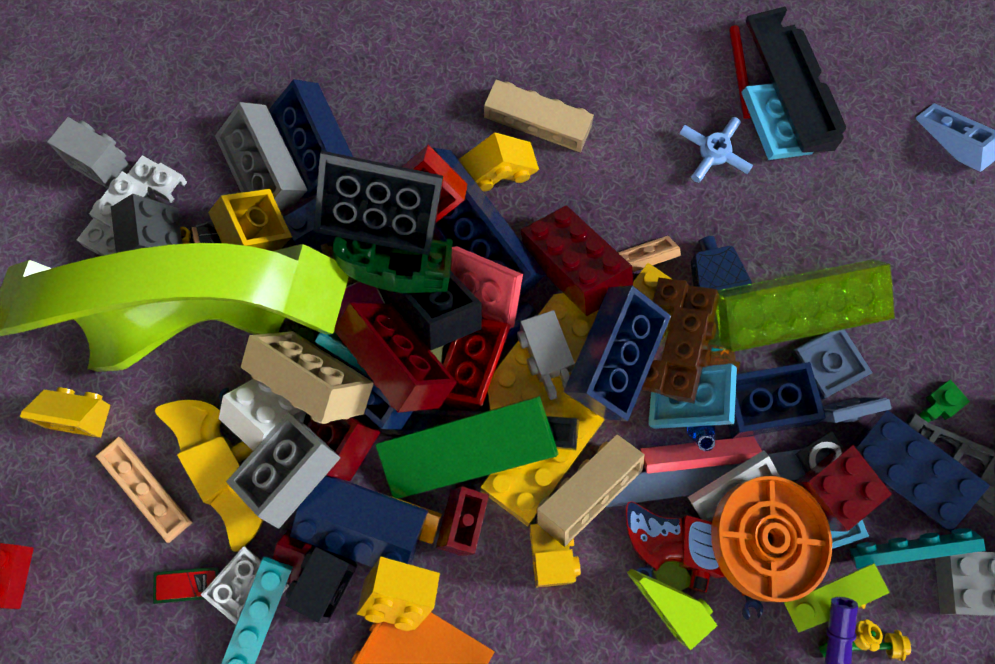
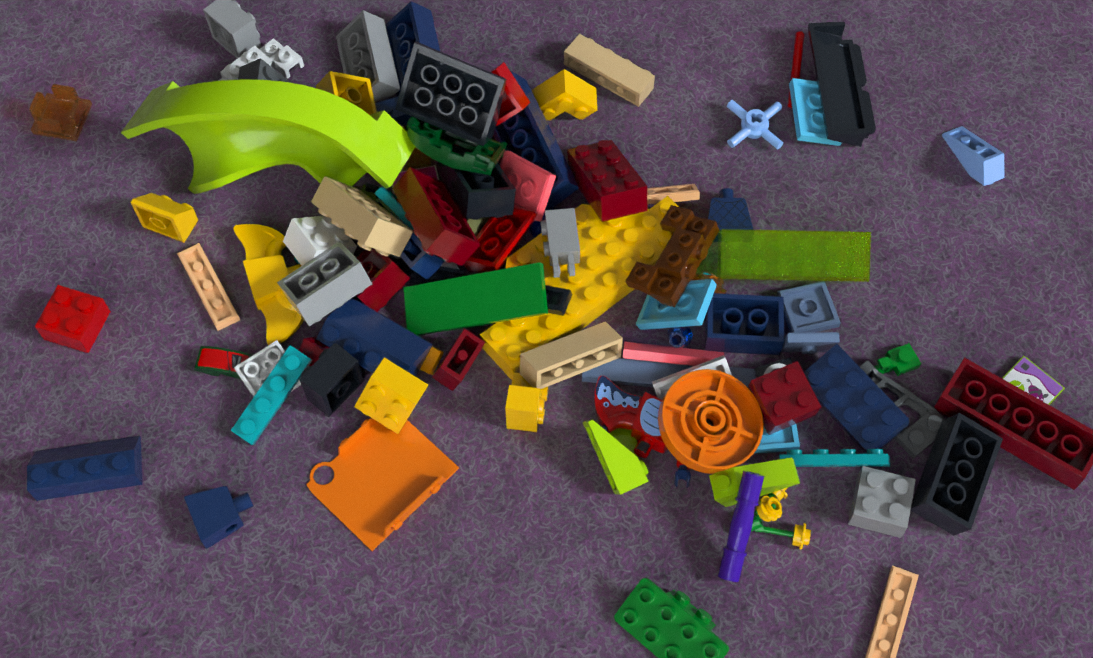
camera: 15 degrees right, 10 degrees down
(617, 353) = (617, 249): dark blue brick -> none

